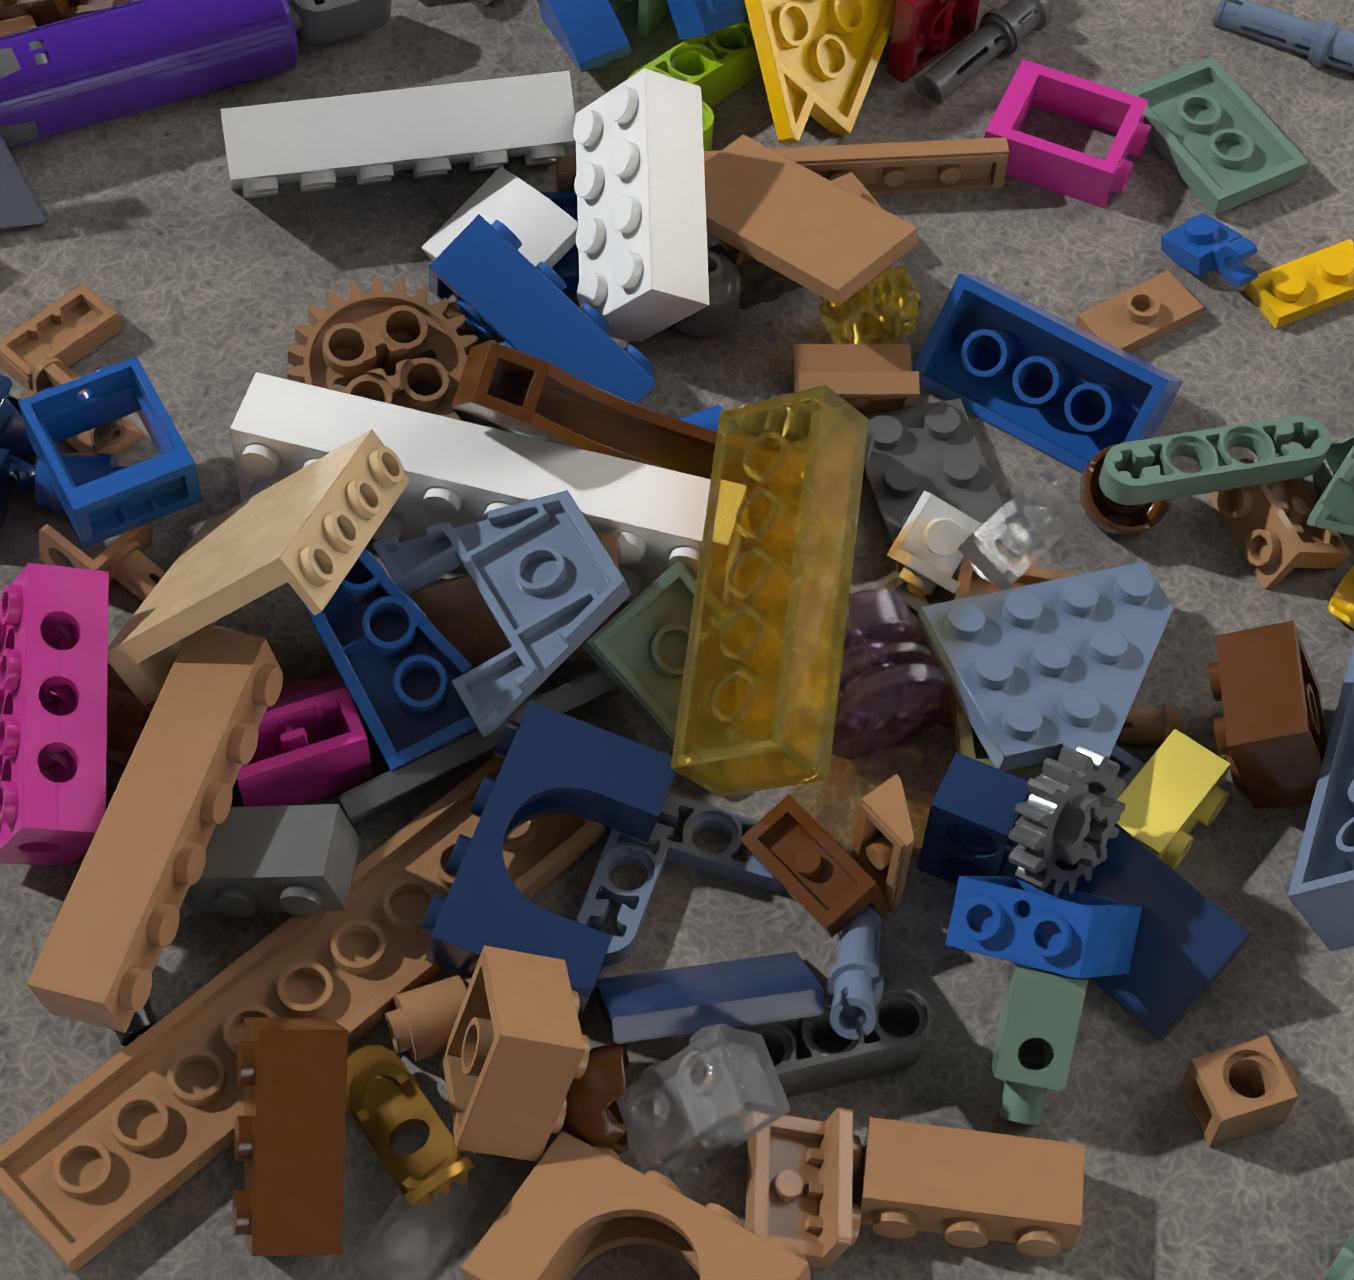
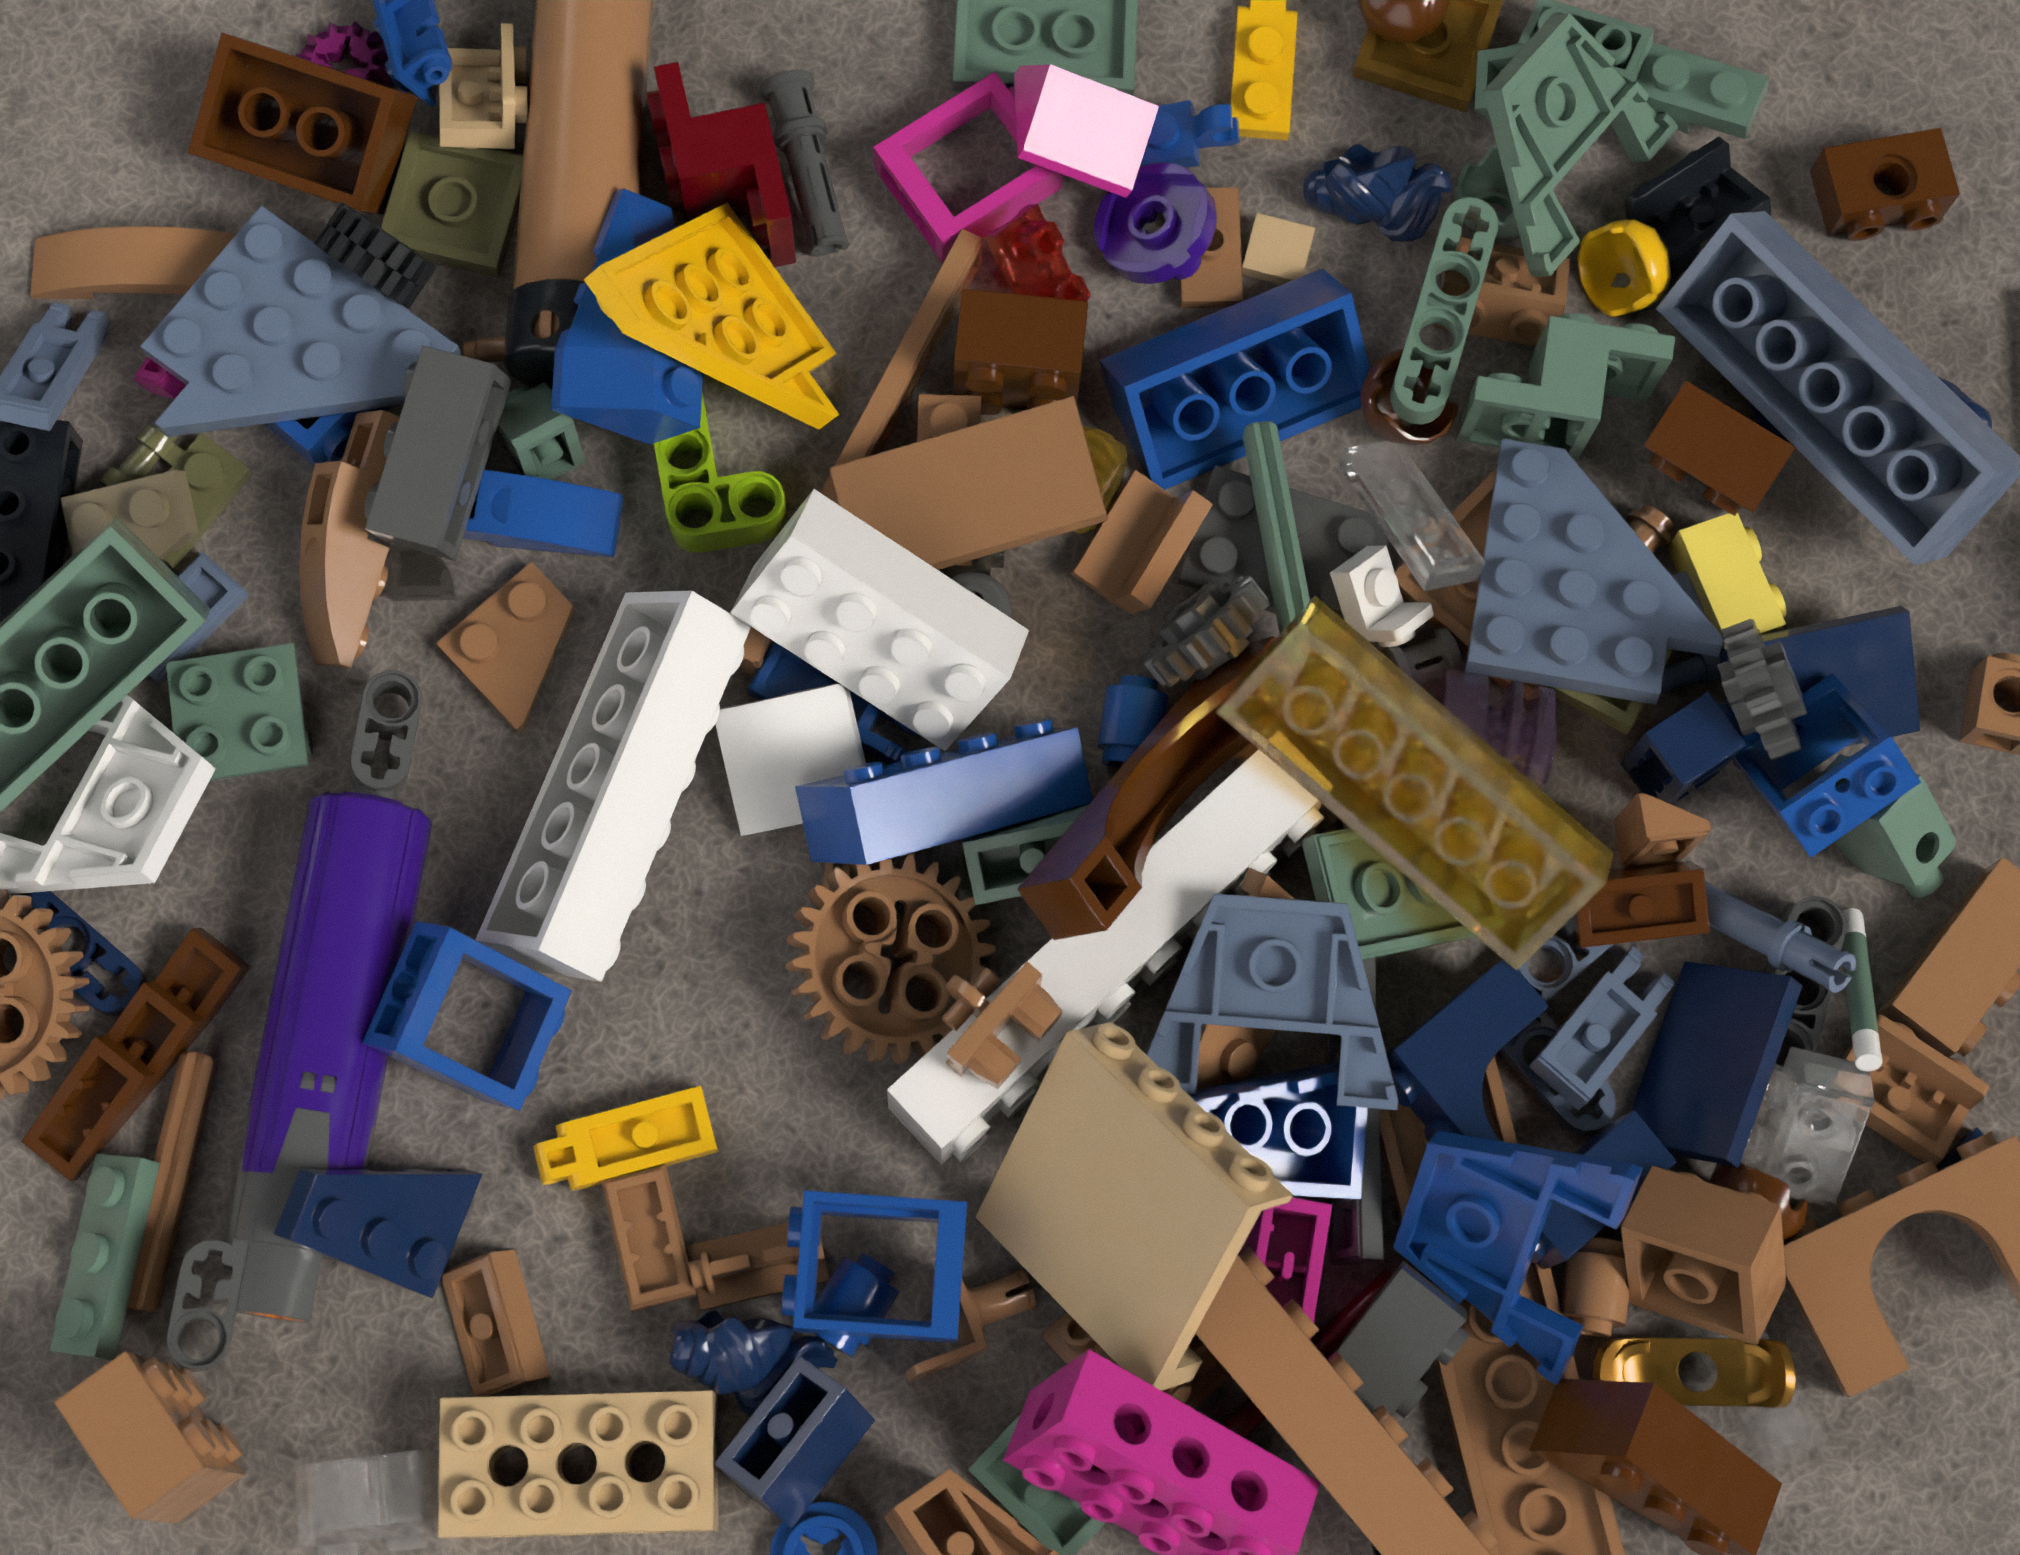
camera: 60 degrees left, 20 degrees up
(143, 74) = (418, 992): none -> blue window
(144, 299) = (628, 1140): none -> yellow hinge
(353, 393) = (1019, 1001): none -> medium nougat hips
(410, 854) = (1480, 1220): none -> blue wing
(474, 51) = (511, 643): none -> medium nougat wing
(679, 895) = (1599, 1032): none -> sand blue hinge
(863, 1083) = (1860, 995): none -> sand green bar
(937, 448) = (1276, 521): none -> sand green axle
(949, 201) = (1018, 349): none -> reddish brown brick
(1017, 201) = (1032, 258): none -> clear red hips
(1117, 263) = (1177, 245): none -> dark purple plate
(1149, 164) = (1081, 127): none -> slope
(1180, 356) = (1277, 249): none -> tan tile
(1225, 574) = (1566, 384): none -> sand green bracket
(1281, 382) = (1379, 189): none -> dark blue hair

